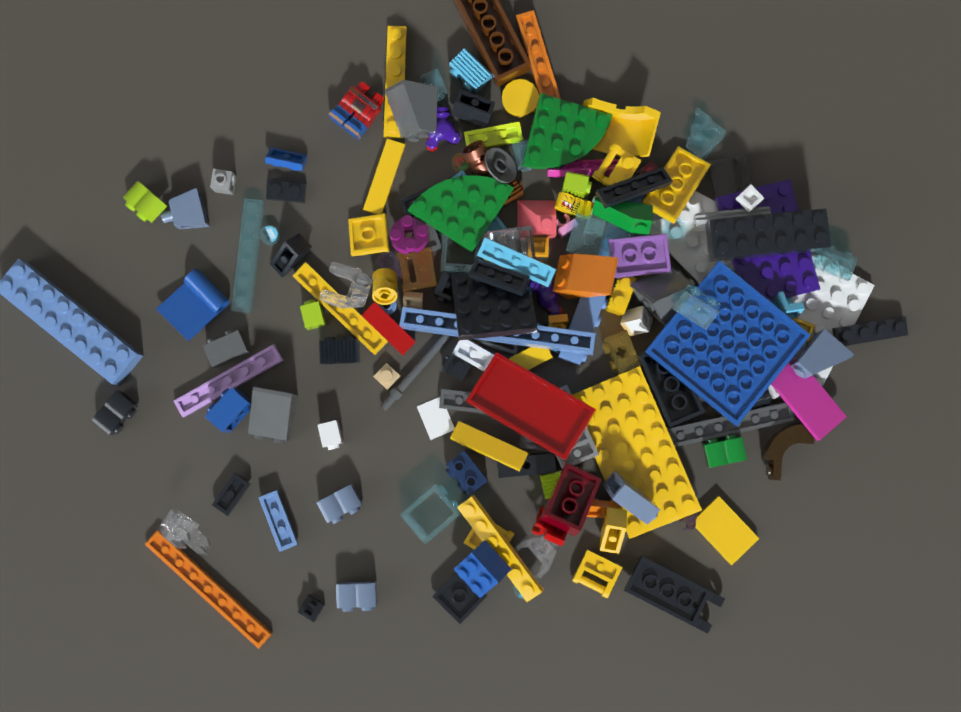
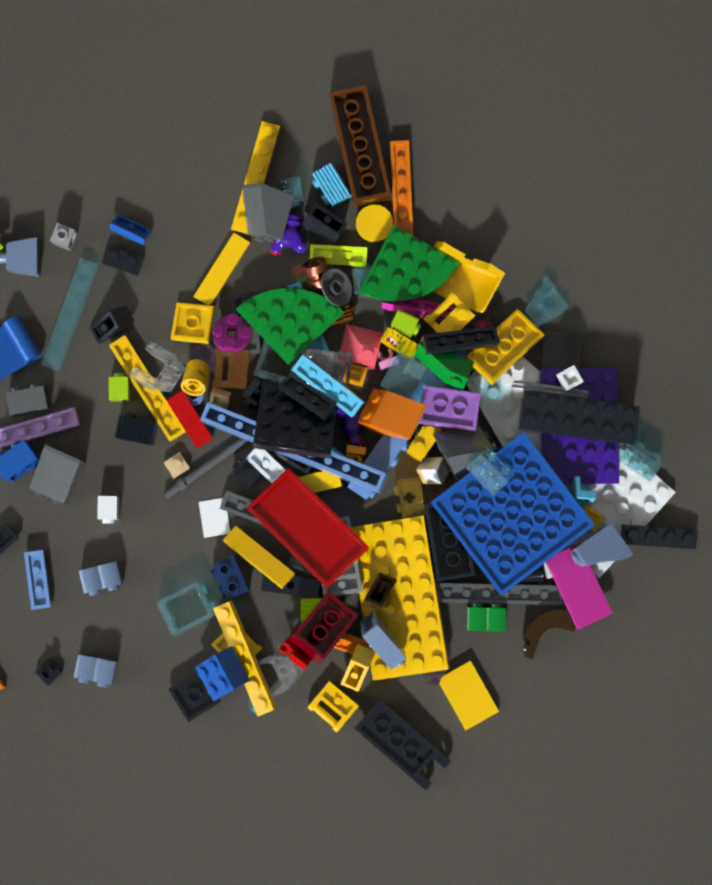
camera: 15 degrees right, 0 degrees up
(269, 235) = (96, 299): tile -> none
(356, 110) = (210, 198): hips -> none
(617, 450) = (381, 591): none -> dark brown slope

